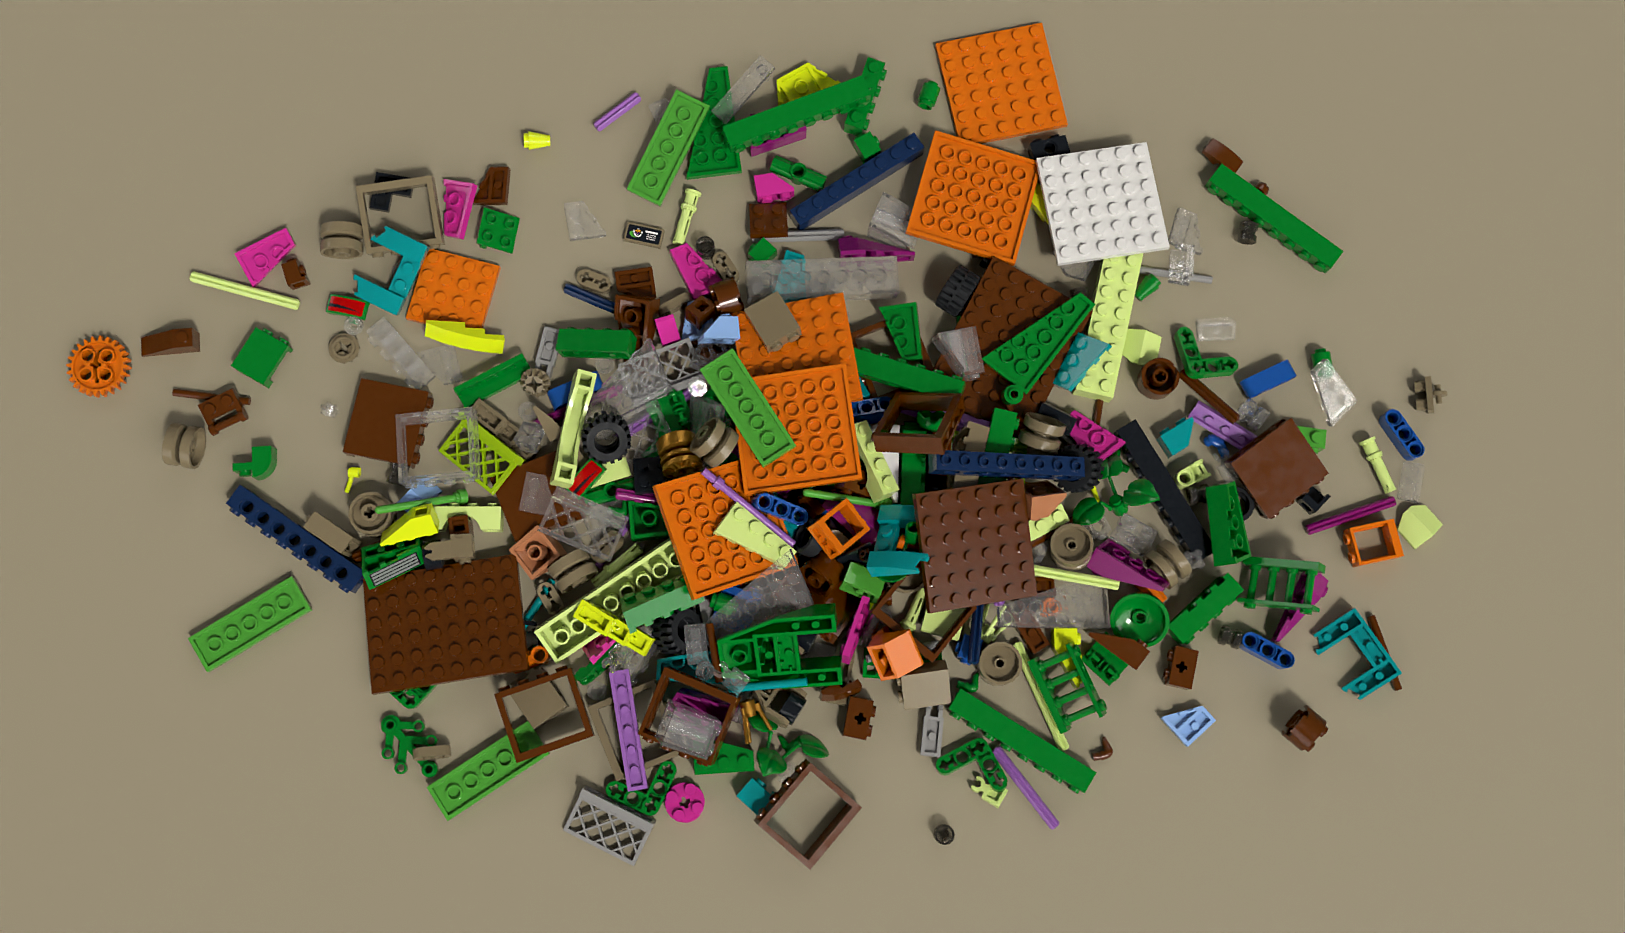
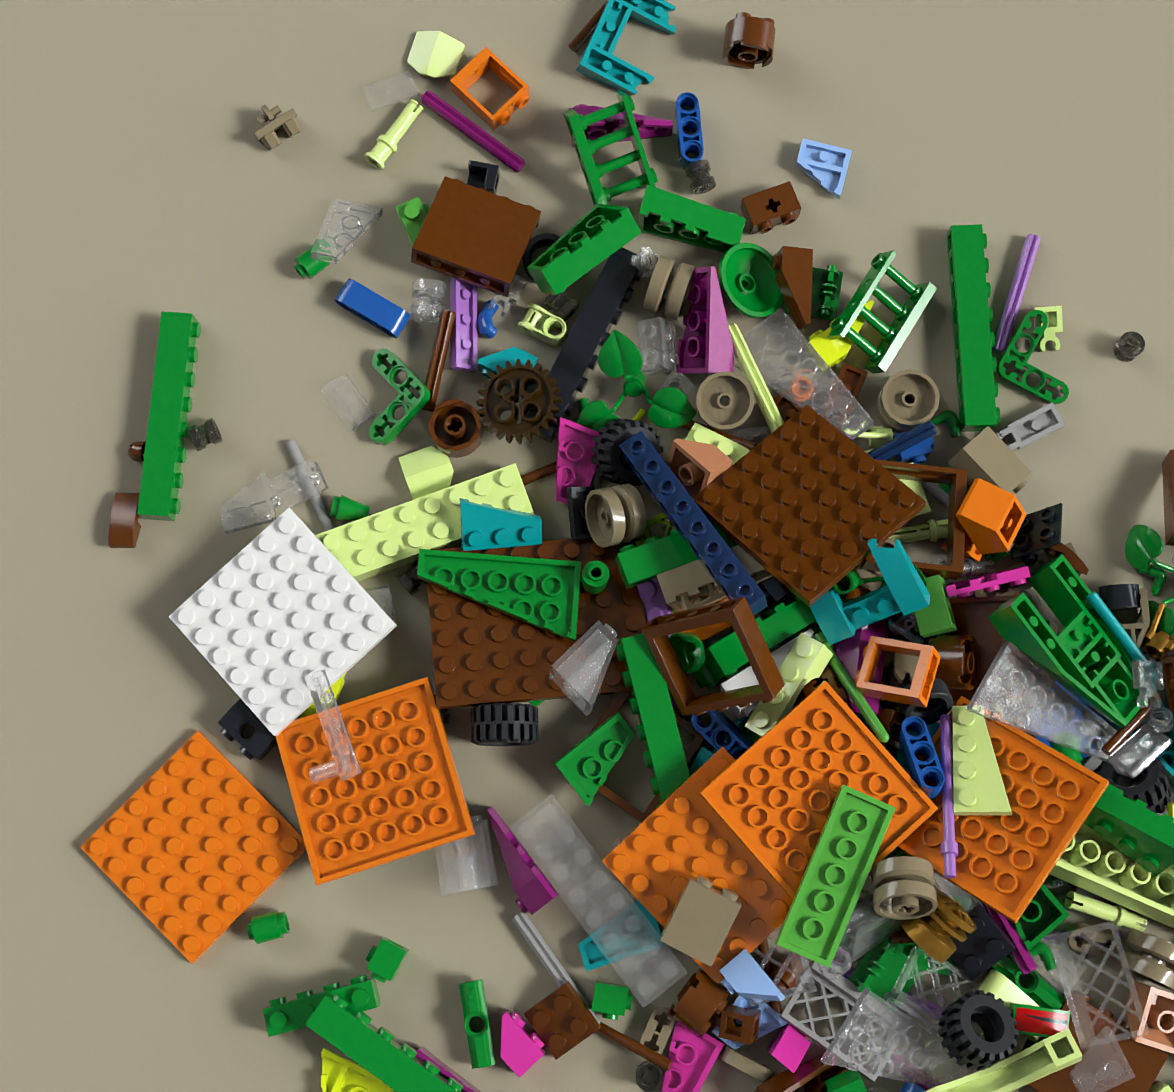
camera: 115 degrees left, 0 degrees up
(727, 249) = (635, 1046): none -> reddish brown bar
(856, 182) = (441, 941): dark blue brick -> none
(857, 706) = (1090, 514): reddish brown brick -> none
(865, 682) = (1037, 533): none -> black hinge
(1019, 190) = (344, 758): none -> clear piece
(1059, 739) = (880, 379): yellowish green axle -> none
(1104, 754) = (918, 232): reddish brown animal -> none
(1143, 437) = (496, 403): none -> dark brown gear
(1410, 438) = (343, 117): blue beam -> none

